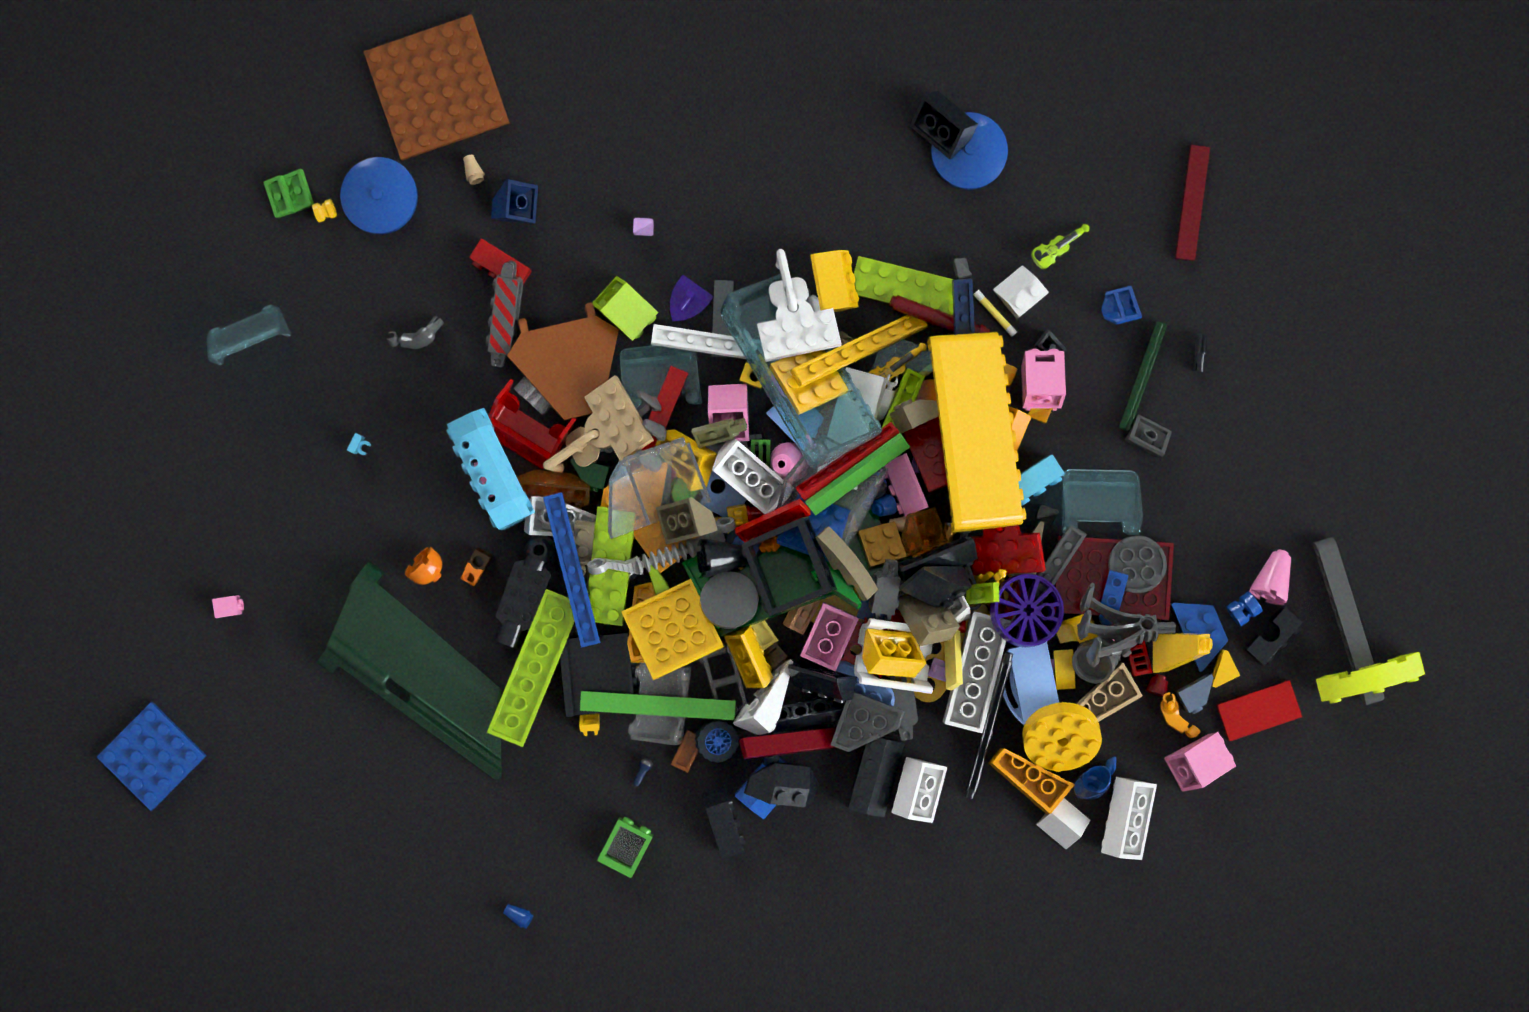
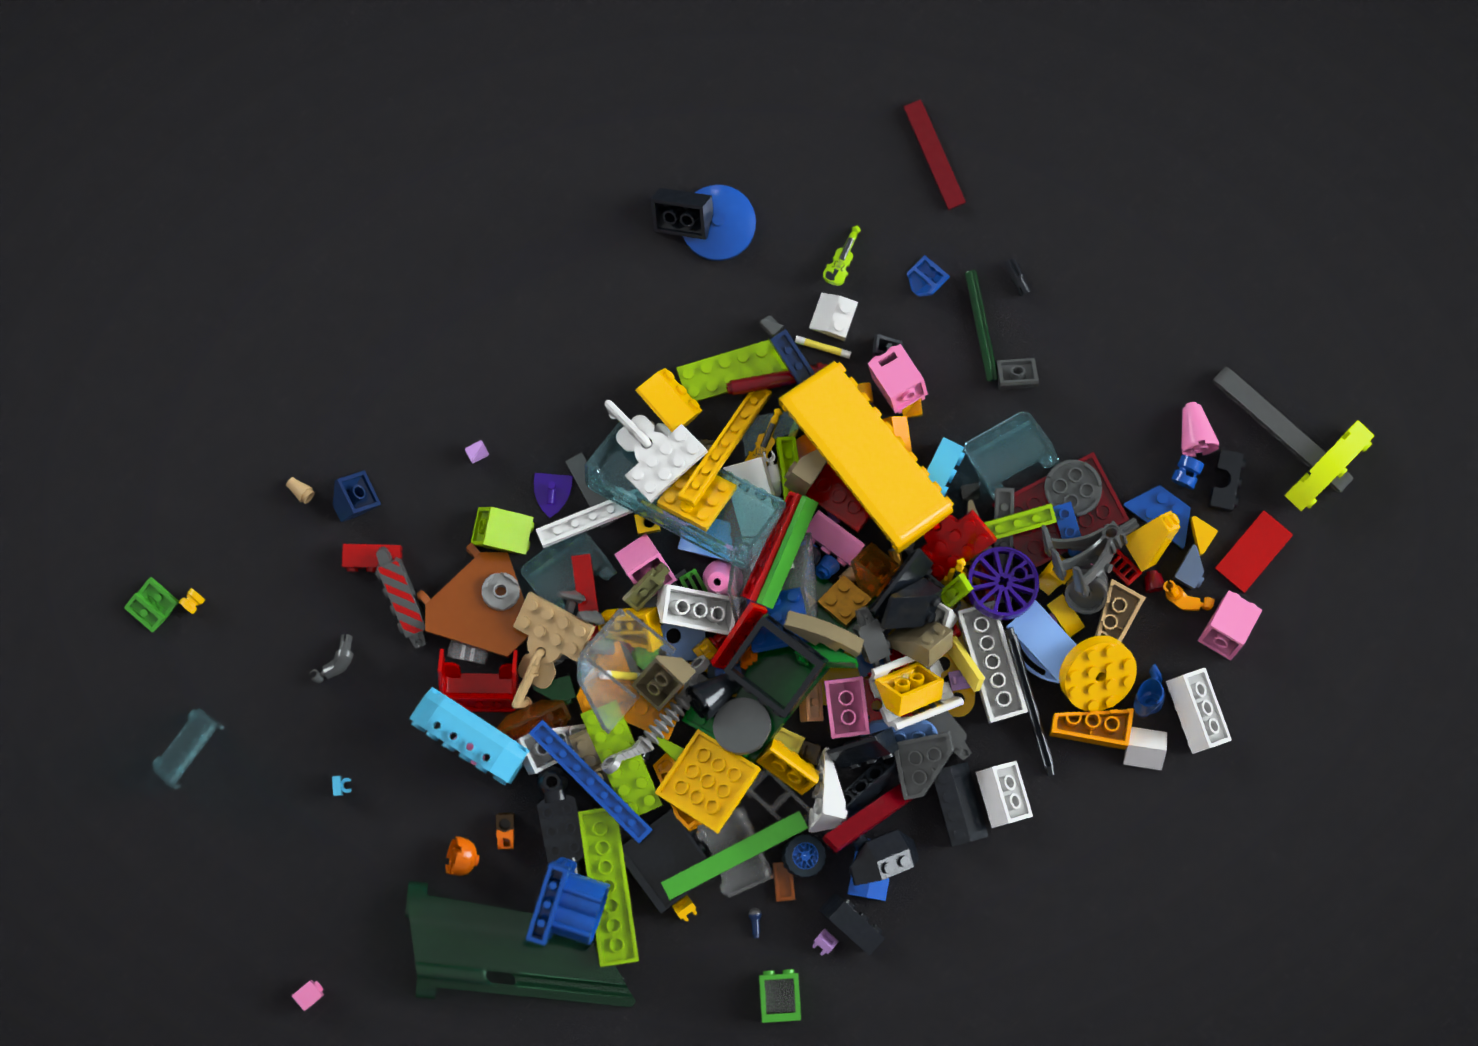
camera: 30 degrees left, 5 degrees down
(379, 195) = (231, 560): blue dish -> none
(436, 87) = (227, 438): dark orange plate -> none
(488, 665) = (567, 905): none -> blue hose
(600, 352) = (505, 601): none -> light grey tile
(652, 495) = (623, 675): none -> light yellow bar
(692, 824) = (825, 941): none -> lavender tile
(1076, 567) = (1022, 521): none -> lime plate

